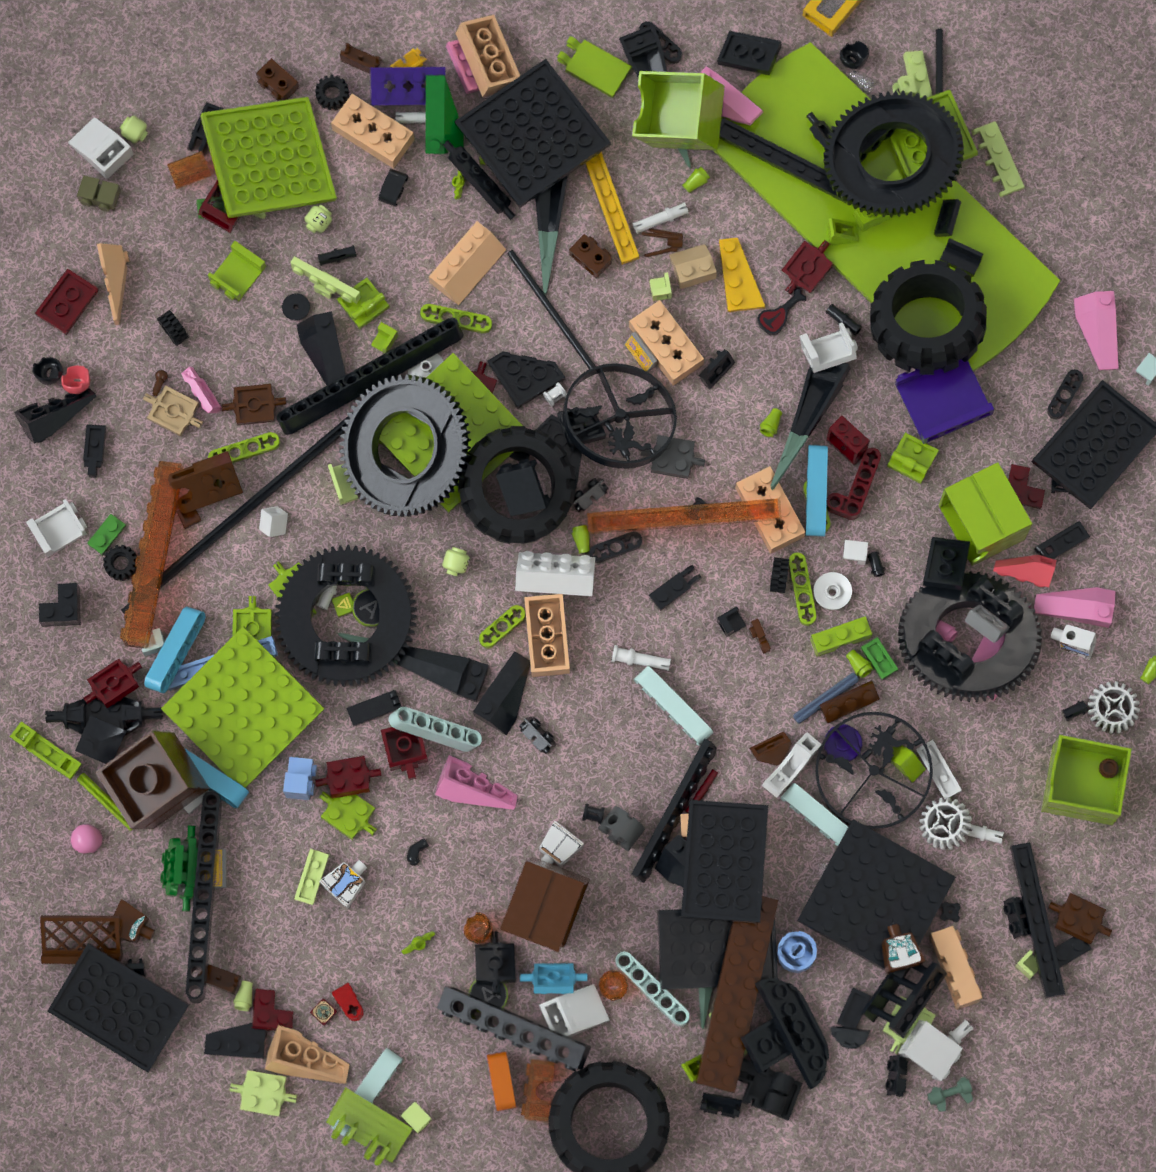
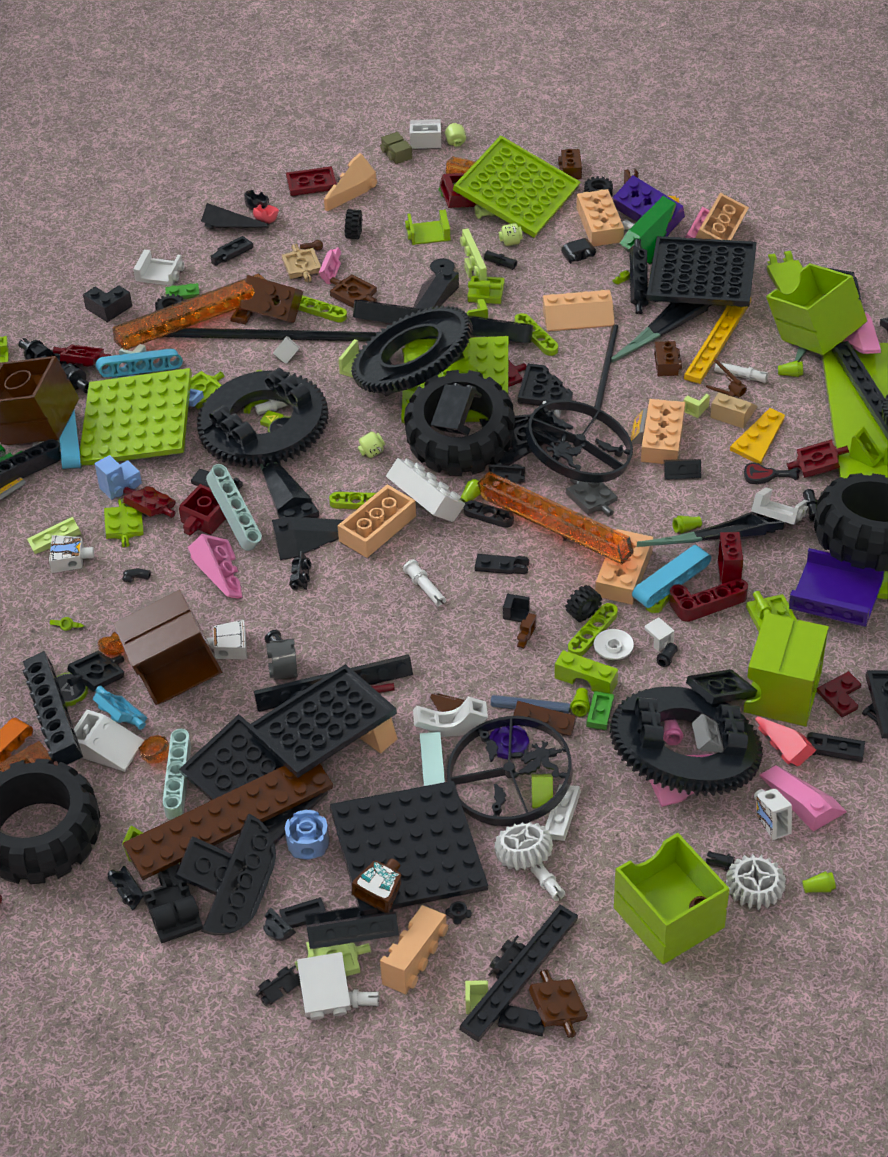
camera: 45 degrees right, 30 degrees down
(668, 700) = (412, 624): light aqua beam -> none
(938, 1096) = (293, 1028): sand green piece -> none

